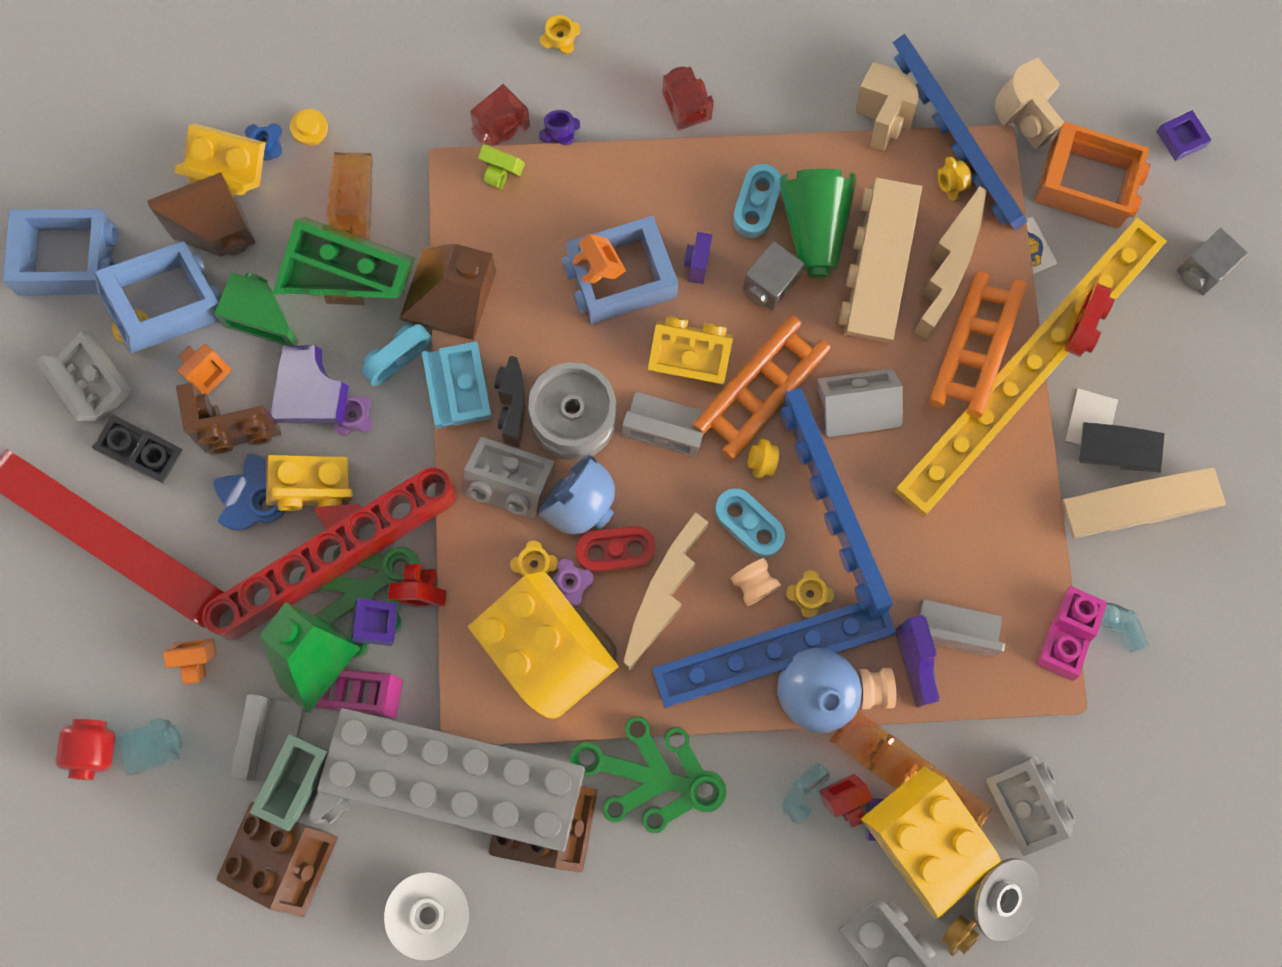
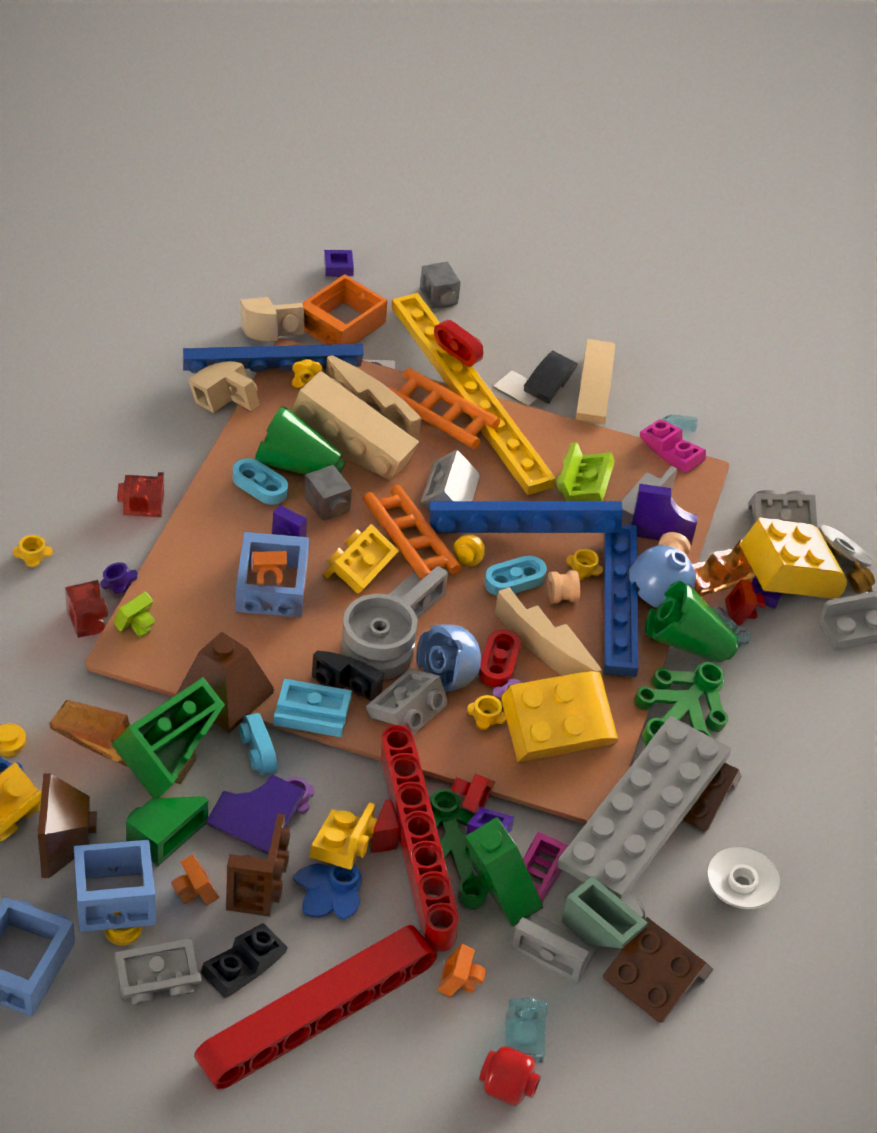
camera: 70 degrees left, 30 degrees down
(759, 746) = (690, 625): none -> green cone
(952, 545) = (585, 475): none -> lime bracket

